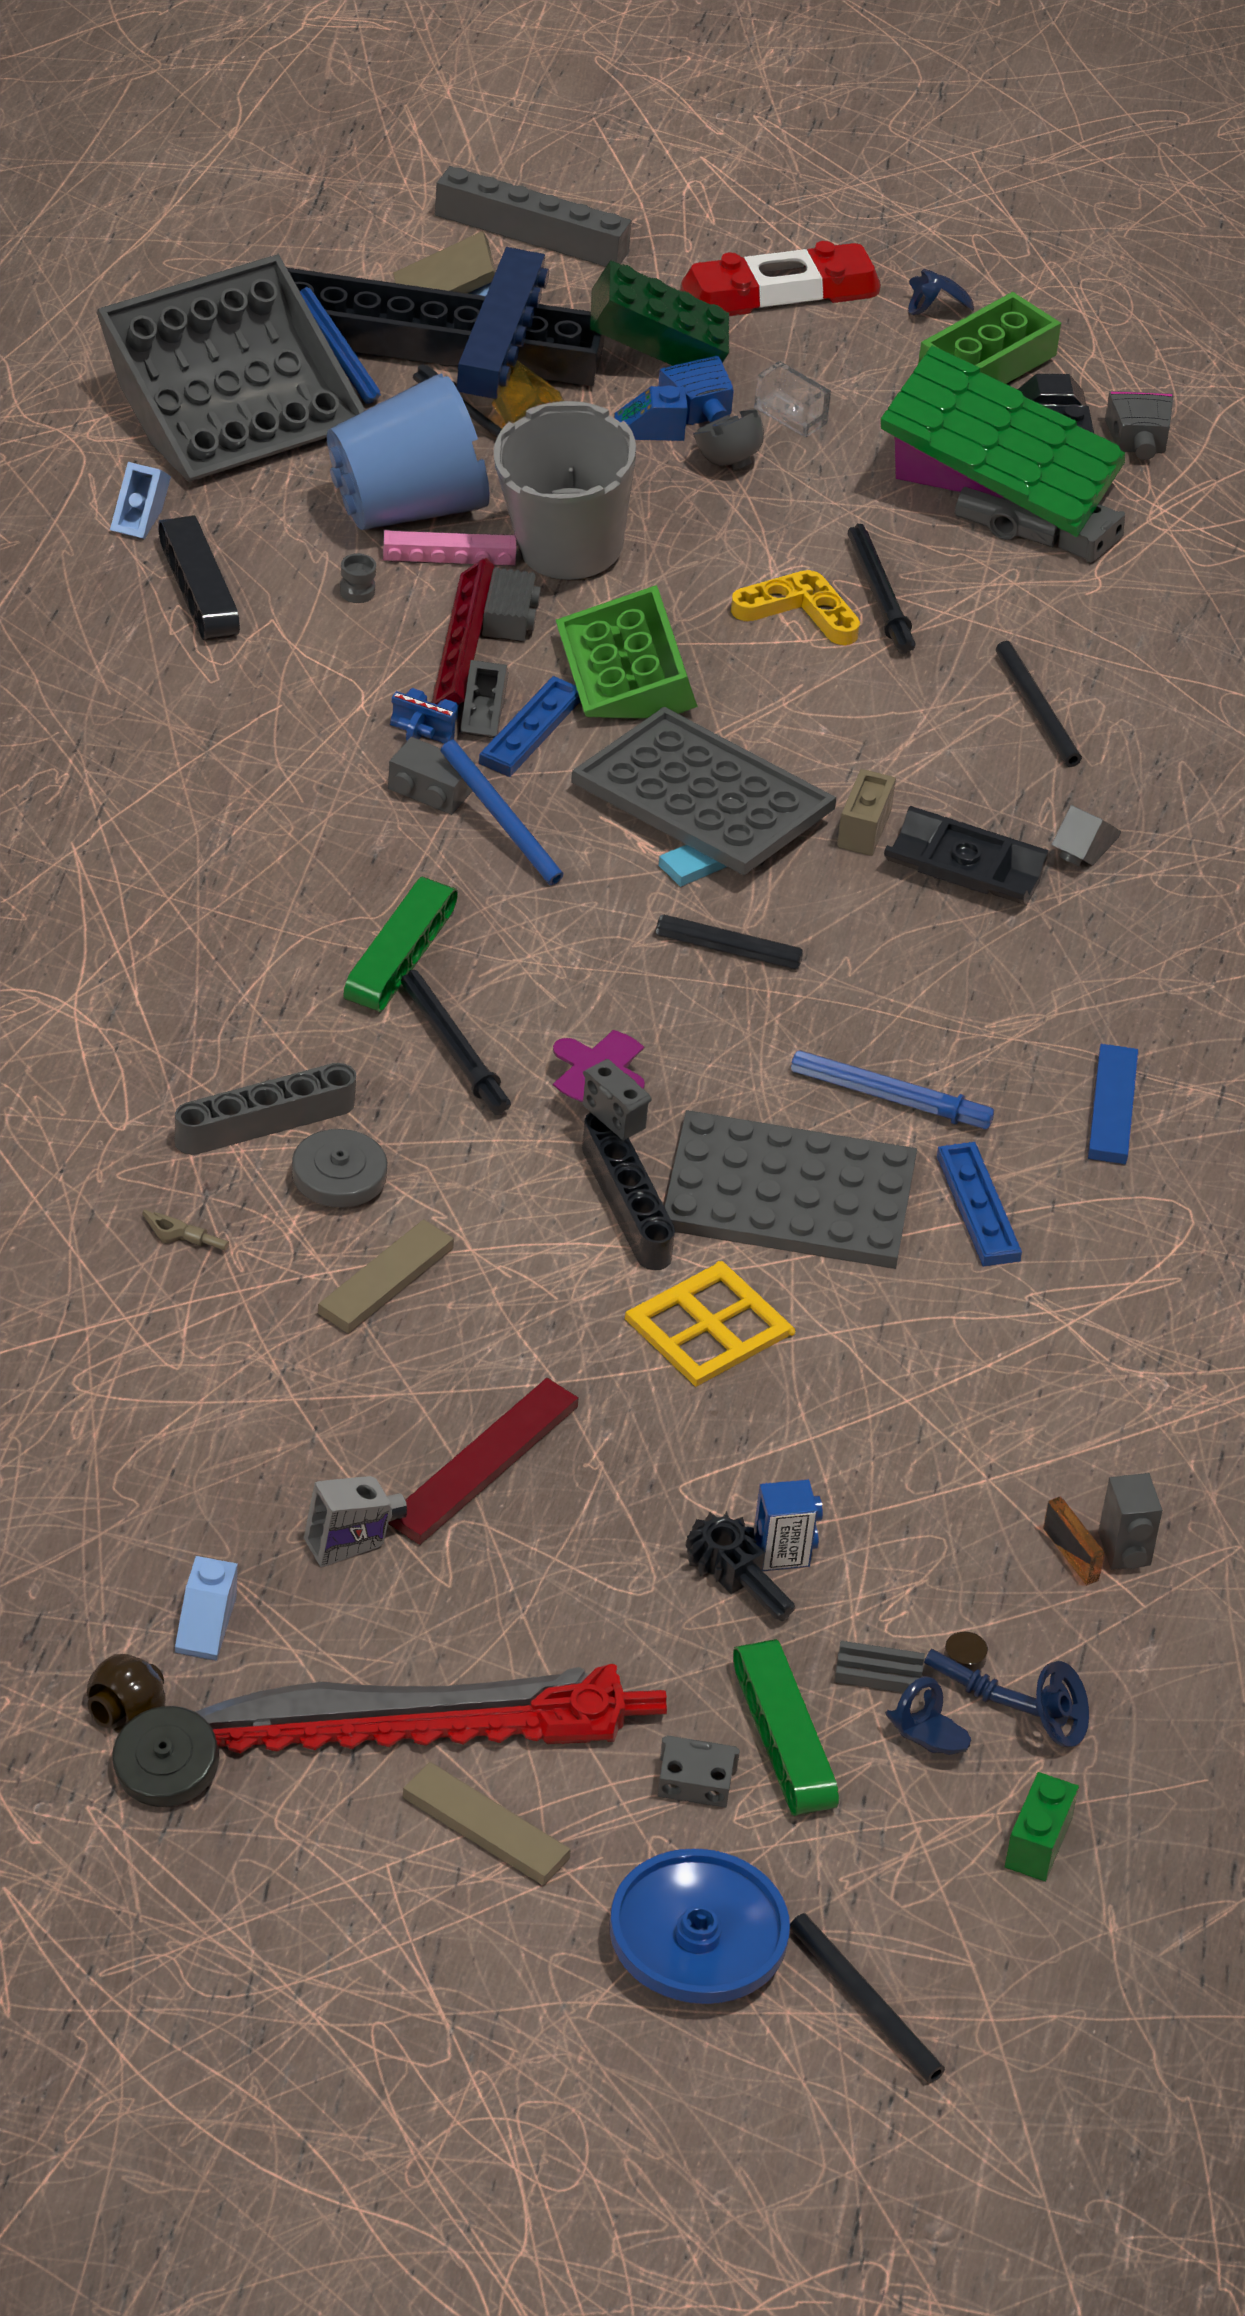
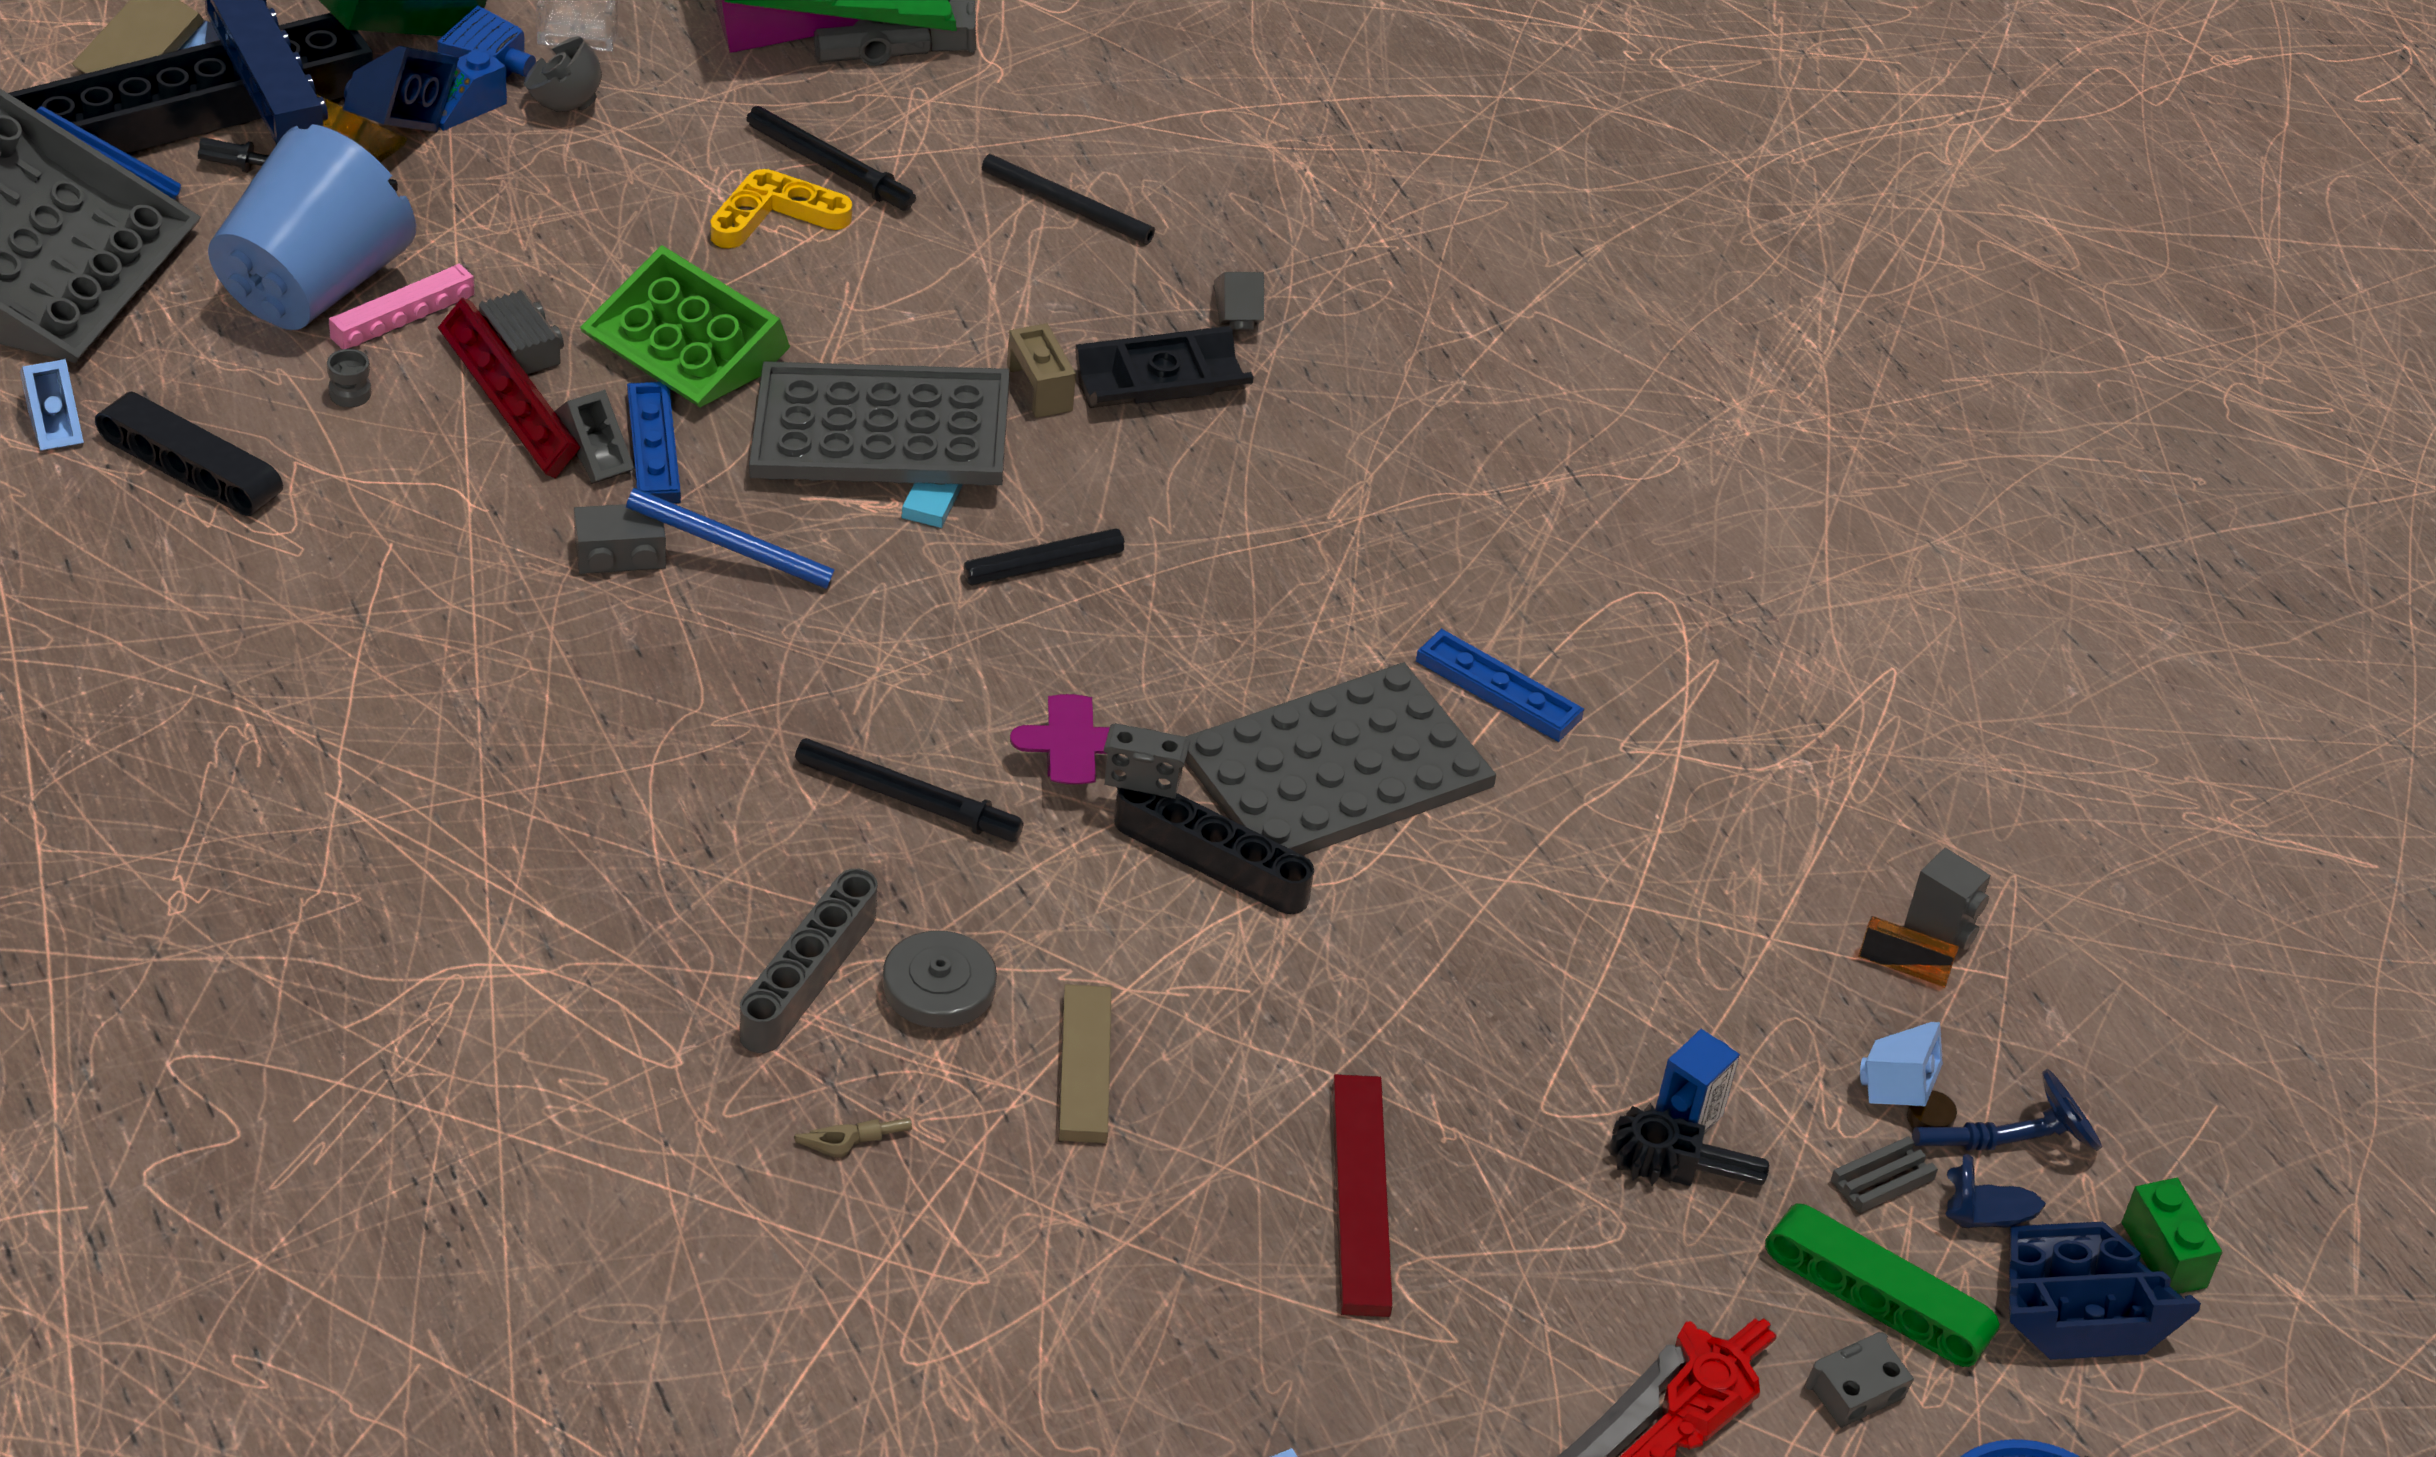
camera: 40 degrees left, 0 degrees up
(349, 1518) = (1332, 1310): light grey torso -> none
(400, 944) = (762, 721): green beam -> none
(423, 718) = (552, 485): blue hips -> none
(567, 486) = (501, 184): light grey cone -> none
(587, 380) = (402, 88): none -> dark blue slope
(683, 1294) = (1403, 933): yellow window -> none
(893, 1090) = (1324, 619): blue axle -> none
(925, 1817) = (2087, 1293): none -> dark blue wedge
(973, 1606) = (1903, 1066): none -> light blue slope
(1113, 1104) = (1507, 530): blue tile -> none

